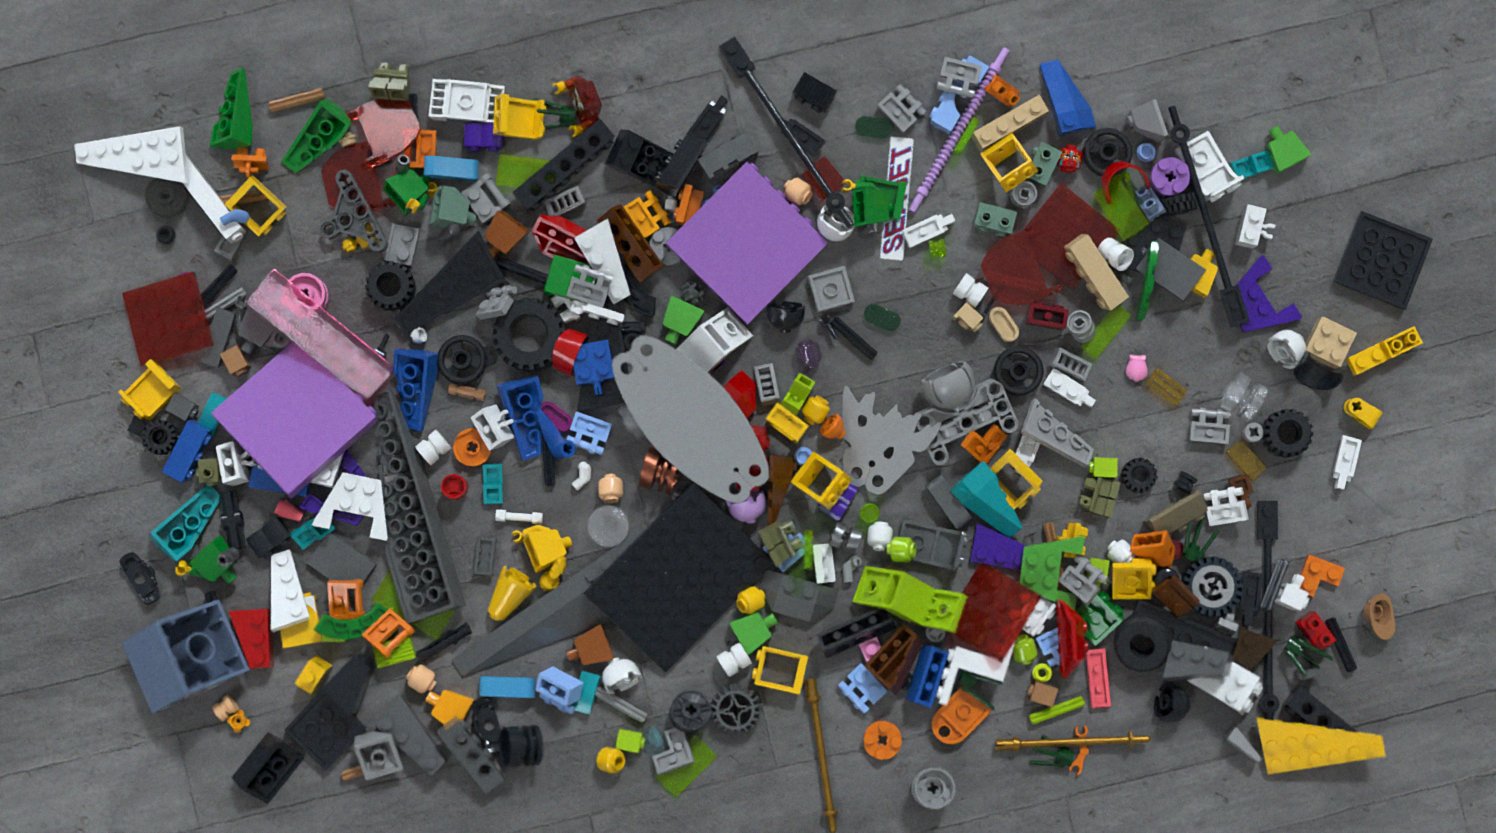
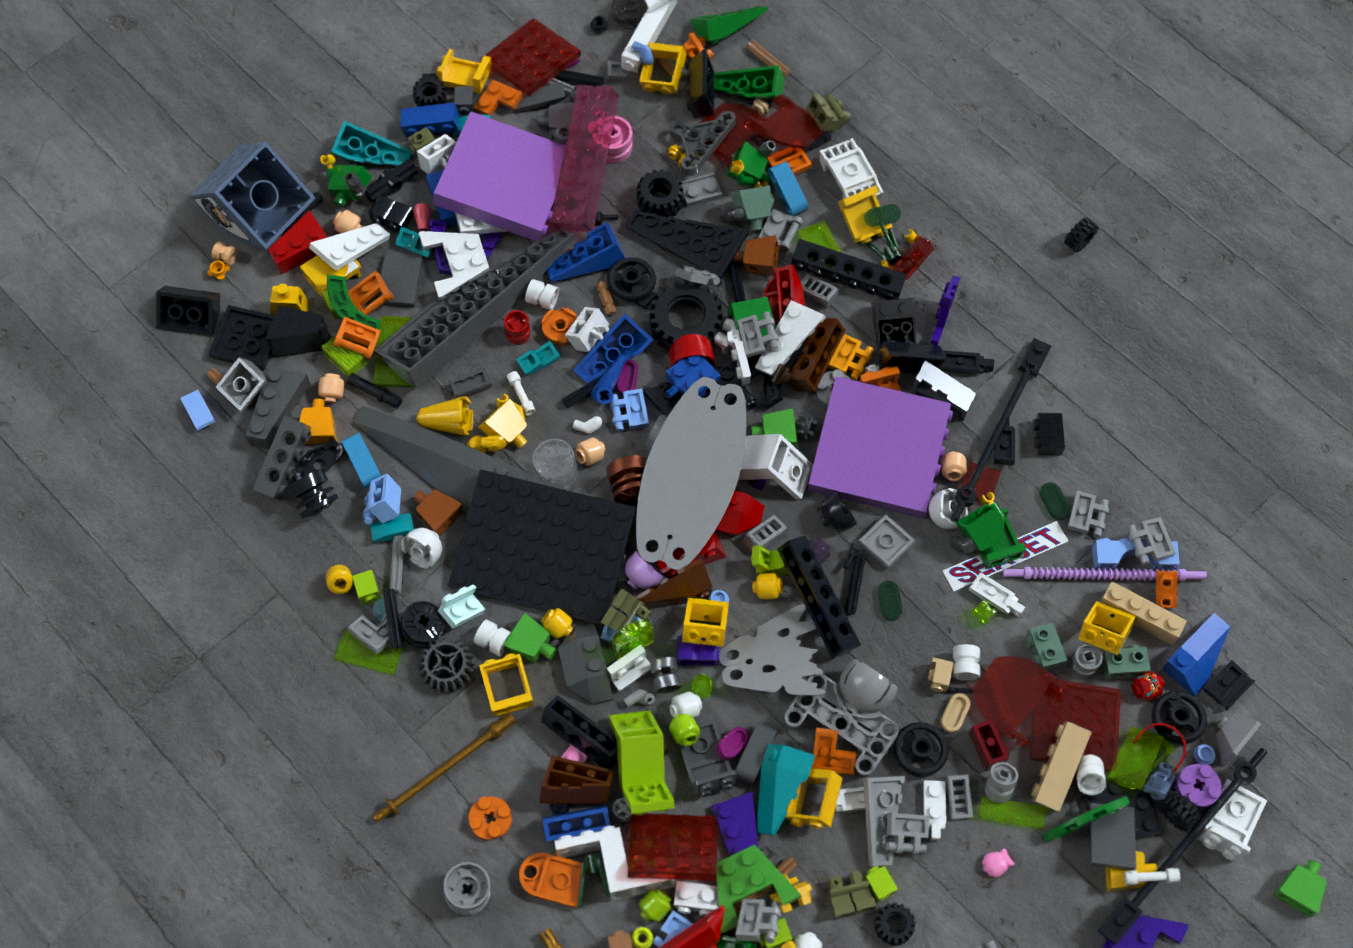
camera: 60 degrees right, 20 degrees down
(133, 565) = (311, 131): black piece -> none
(192, 372) = (497, 94): none -> orange plate
(235, 361) = (526, 117): medium nougat brick -> none
(257, 582) = (346, 221): none -> light nougat head
(296, 182) = (701, 86): none -> black slope
(375, 804) = (197, 410): none -> light blue slope
(418, 335) = (633, 235): white hinge -> none
(481, 136) = (827, 198): dark purple brick -> none
(528, 102) = (886, 214): none -> clear green tile
(636, 286) = (781, 375): none -> dark brown plate
(655, 109) = (945, 304): none -> dark purple wing
(673, 733) = (393, 618): none -> black axle
(695, 672) = (461, 607): none -> light aqua bracket
(791, 429) = (739, 561): yellow window -> none
(833, 427) = (761, 611): orange brick -> none
(851, 376) = (818, 596): none -> black brick
(866, 684) = (535, 774): light blue plate -> none
(931, 516) = (732, 743): none -> magenta tile
(966, 136) = (1101, 581): clear neon green tile -> none
(1073, 421) = (907, 825): none -> light grey plate
(1104, 95) = (1229, 685): none -> black plate
(1167, 387) = (990, 883): clear yellow tile -> none
(1225, 246) = (1170, 874): none -> white bar
(1251, 227) = (1207, 895): white brick -> none
(1252, 165) = (1264, 865): teal slope -> none

